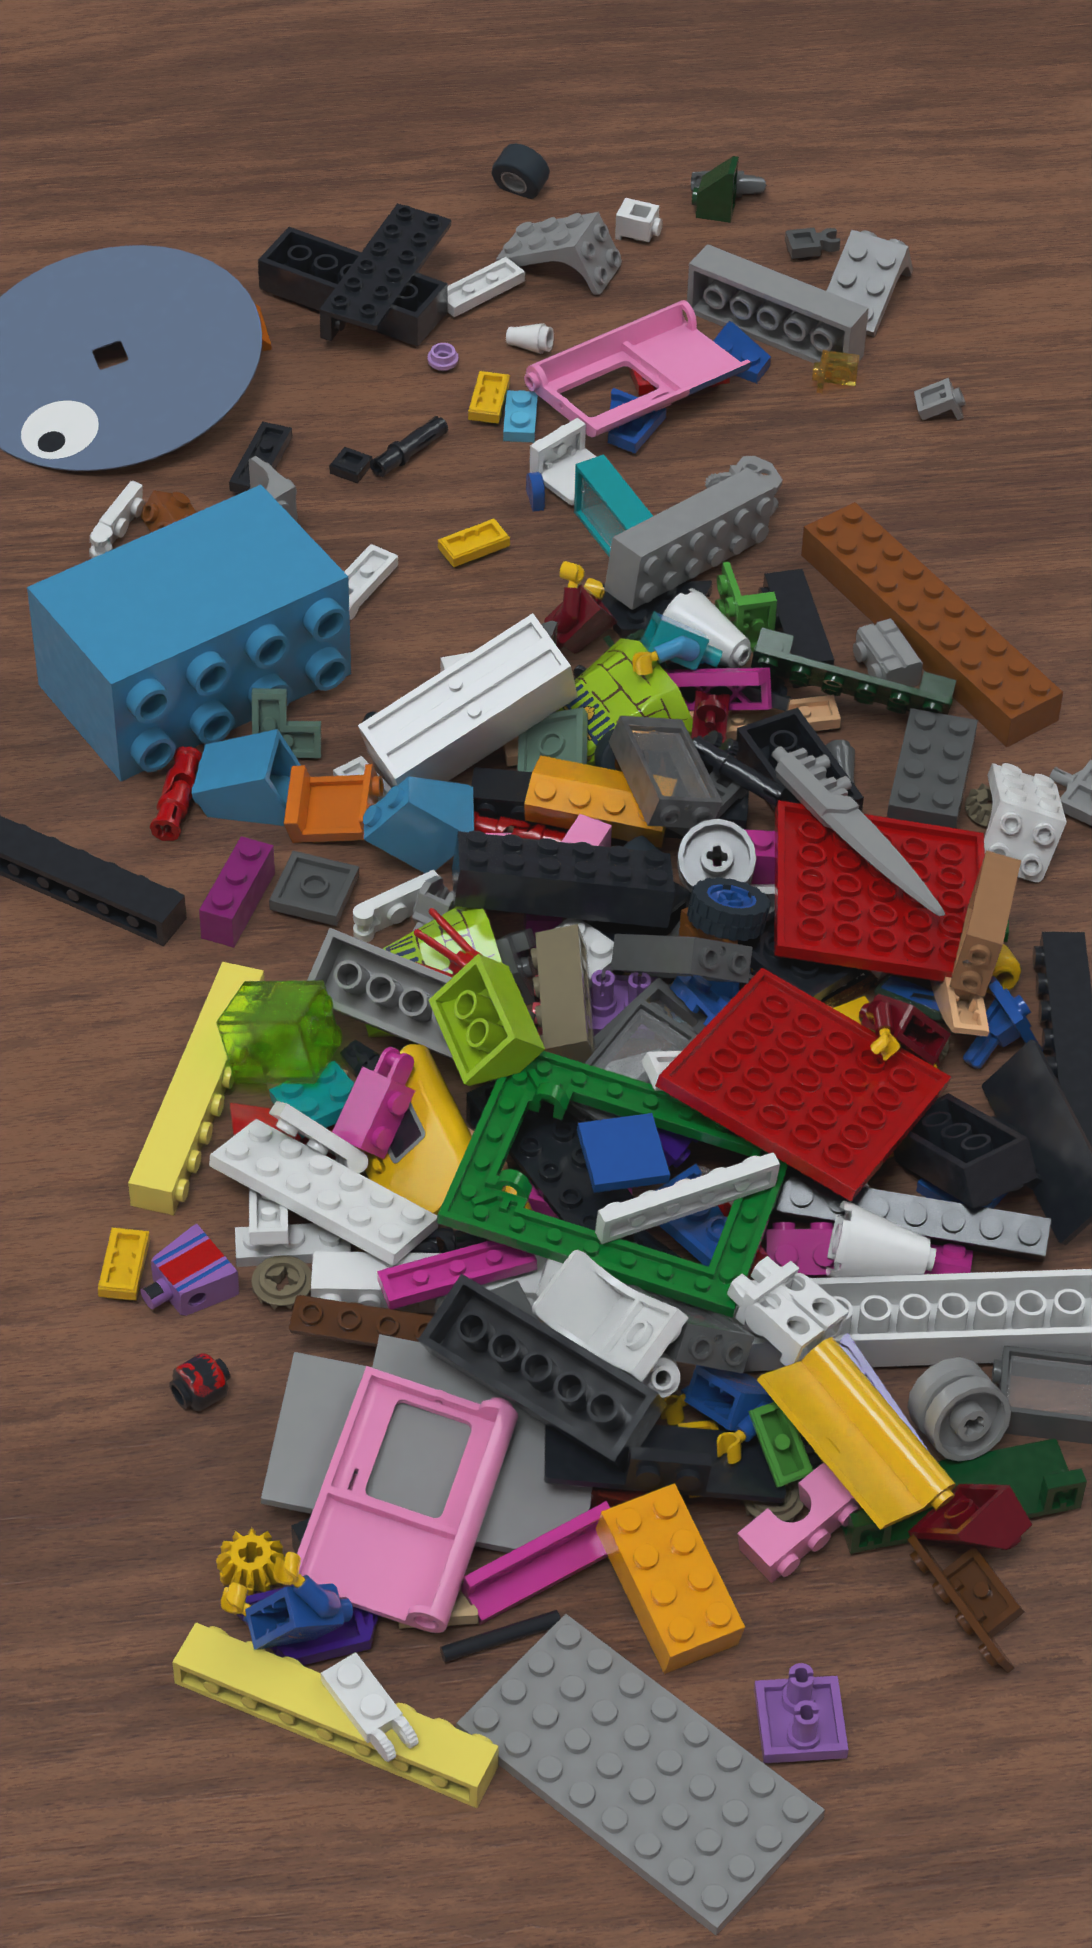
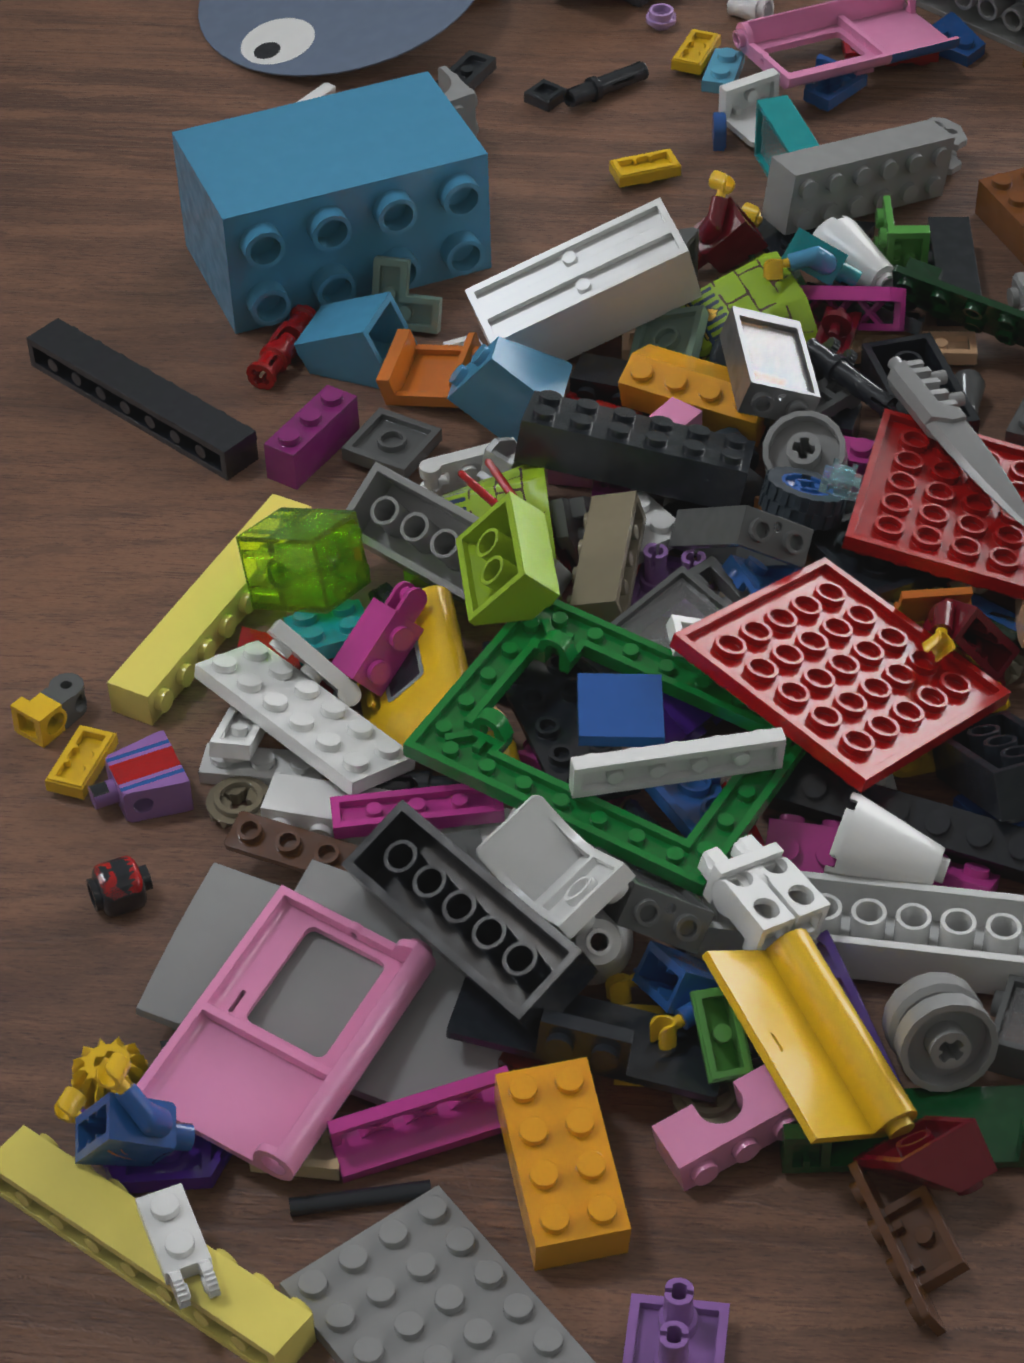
camera: 15 degrees right, 5 degrees down
(78, 1217) = (51, 710): none -> yellow leg
(367, 574) = (524, 188): white plate -> none
(760, 888) = (841, 481): none -> clear light blue plate
(856, 999) = (917, 603): none -> orange piece

